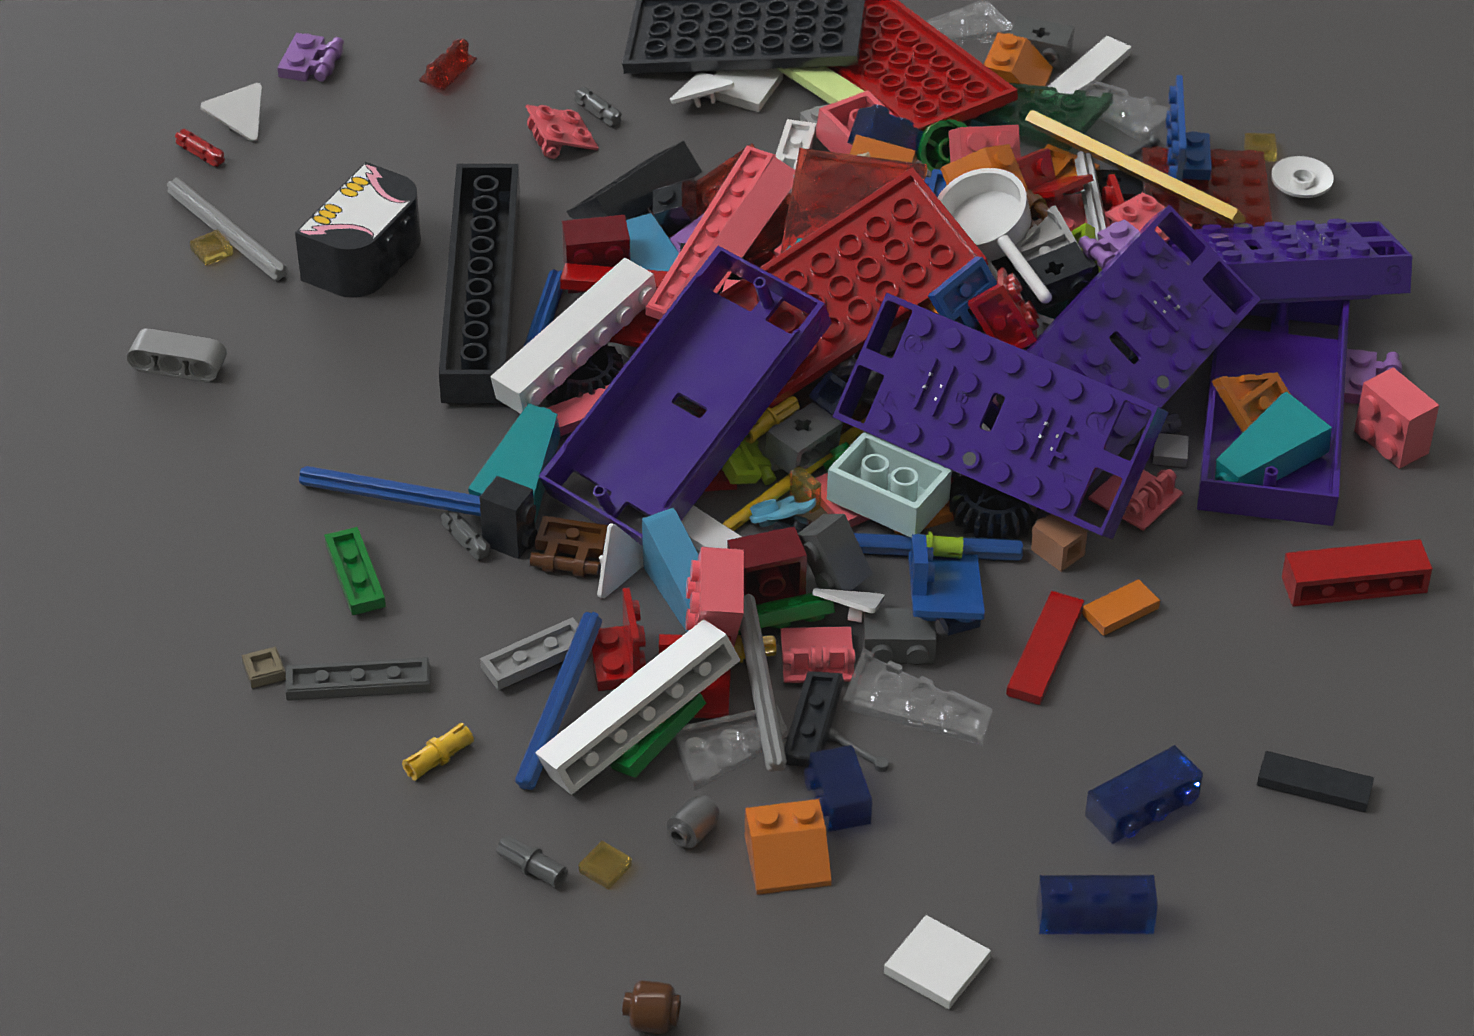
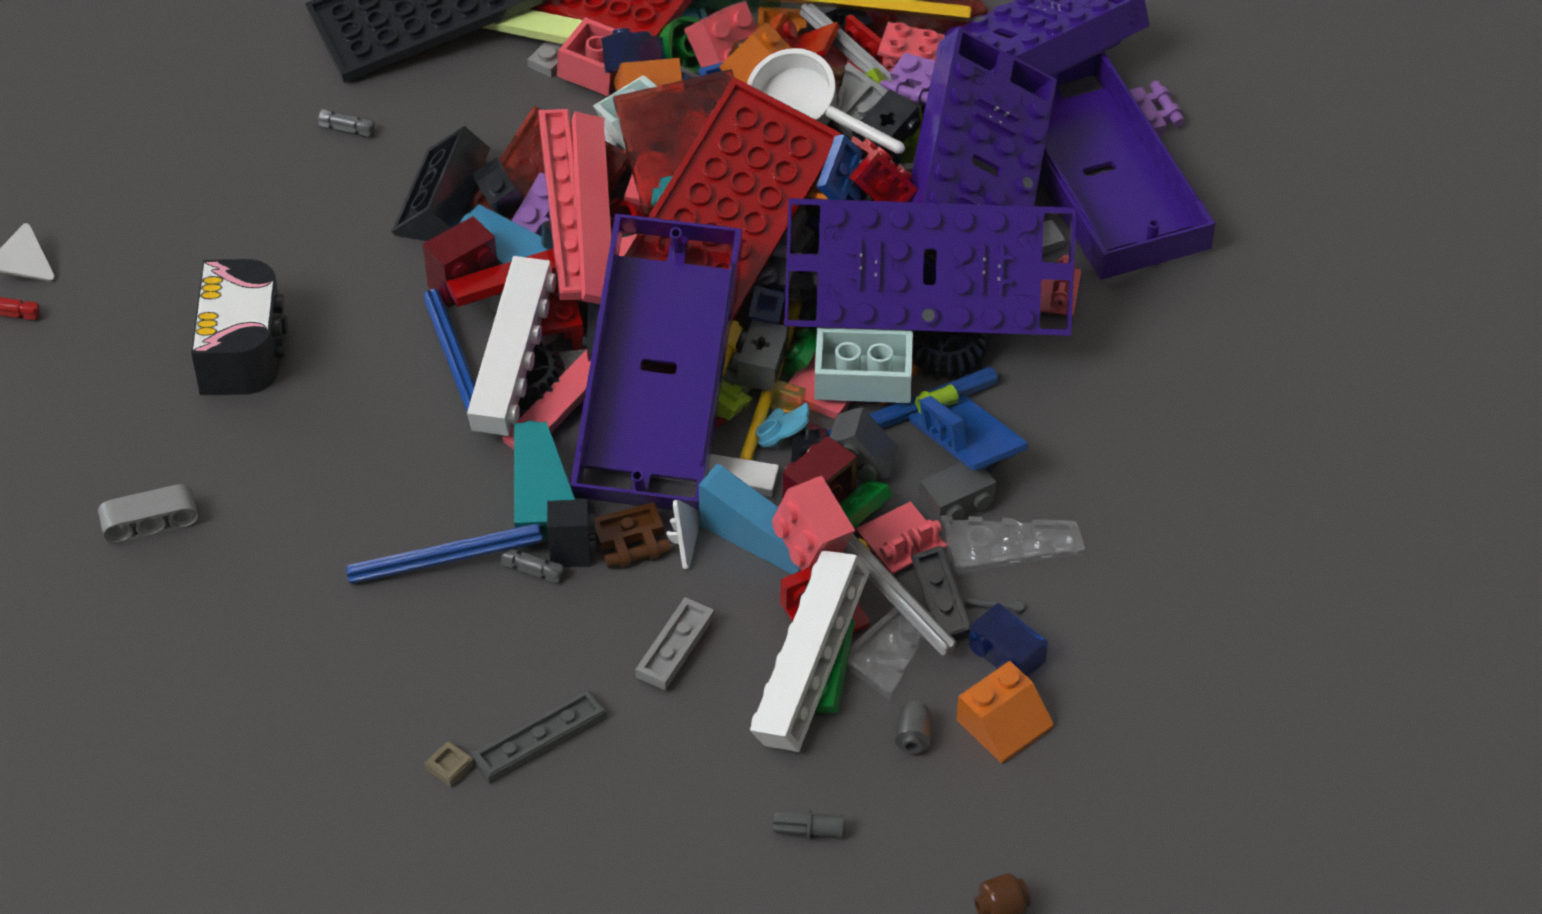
camera: 30 degrees left, 5 degrees up
(211, 247) = (94, 398): clear yellow tile -> none
(230, 231) = (96, 374): light grey axle -> none
(303, 56) = (36, 183): medium lavender plate -> none
(355, 571) = (464, 640): green plate -> none
(437, 751) = (658, 767): yellow pin -> none
(448, 66) = (183, 137): clear red hinge -> none
(479, 281) = (376, 330): black brick -> none
(557, 128) = (328, 159): coral hinge -> none
(559, 698) = (729, 675): blue axle -> none
(605, 865) = (867, 798): clear yellow tile -> none
(617, 649) = (747, 605): red bracket -> none
(701, 85) = (427, 68): white piece -> none
(750, 87) = (459, 55): white tile -> none
(795, 136) = (547, 89): white plate -> none
(857, 601) = (908, 476): white piece -> none
(937, 961) = (1183, 751): white tile -> none
(1045, 648) = (1072, 449): red tile -> none
(1058, 541) = (1019, 354): nougat brick -> none
(1096, 904) = (1270, 645): clear blue brick -> none
(1121, 607) = (1104, 389): orange tile -> none
(1144, 794) = (1239, 538): clear blue brick -> none
(1249, 395) = (1089, 167): orange wing -> none
(1281, 437) = (1132, 198): teal slope -> none
(1315, 781) = (1349, 467): black tile -> none
(1356, 572) = (1259, 280): red brick -> none
(1396, 418) = (1204, 136): coral brick -> none

